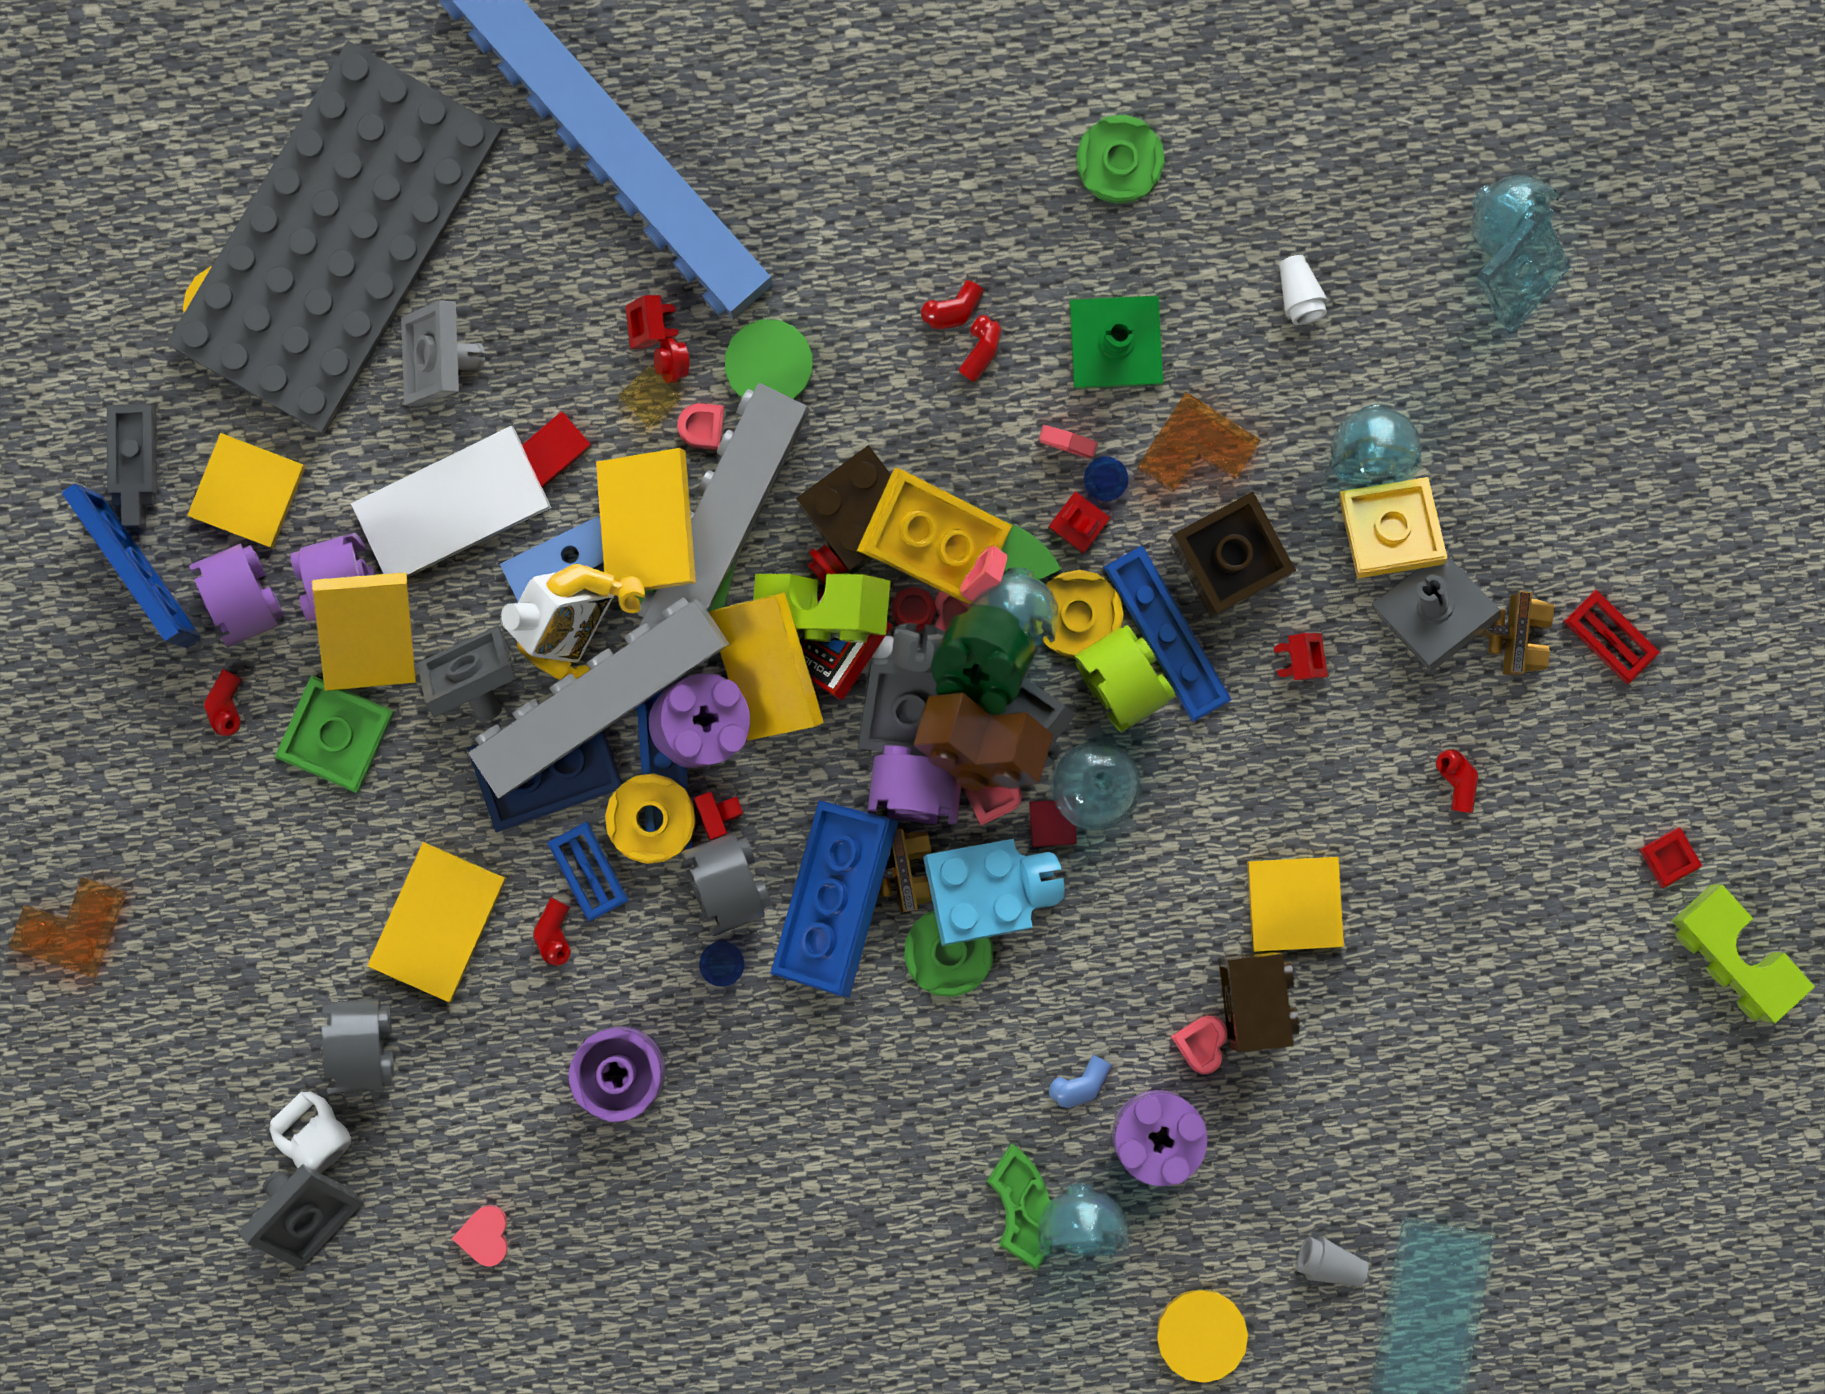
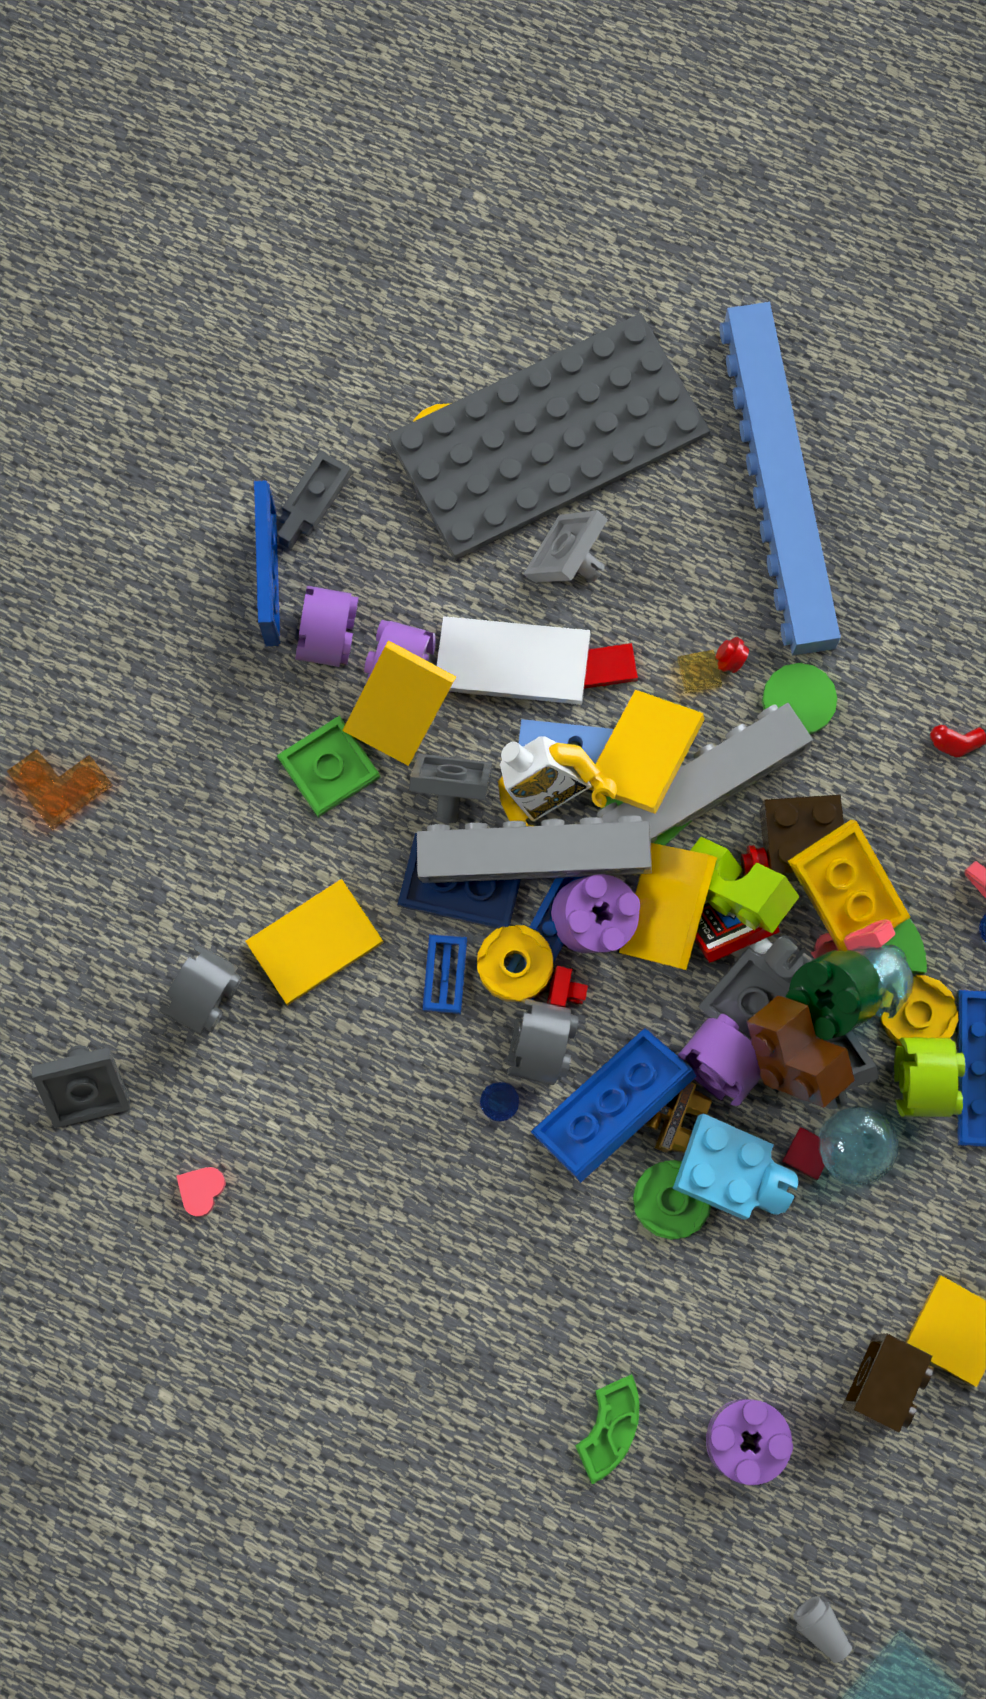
camera: 35 degrees right, 10 degrees down
(220, 705) = (262, 698): red arm -> none
(246, 490) = (376, 565): yellow tile -> none
(319, 1141) = (129, 1044): white piece -> none
(549, 935) = (388, 1000): red arm -> none
(605, 1096) = (364, 1110): medium lavender brick -> none
(646, 321) = (730, 618): red tile -> none
(701, 426) = (724, 713): coral tile -> none
(913, 606) = (802, 930): red plate -> none
(985, 350) = (962, 784): red arm -> none
(993, 802) = (774, 1107): coral tile -> none
(1079, 522) = (959, 947): red tile -> none
(1081, 1089) = (711, 1367): medium blue arm -> none
(1082, 1223) = (650, 1470): clear light blue cylinder -> none
(1201, 1043) = (822, 1391): coral tile -> none
(1202, 1335) = (688, 1620): yellow tile -> none

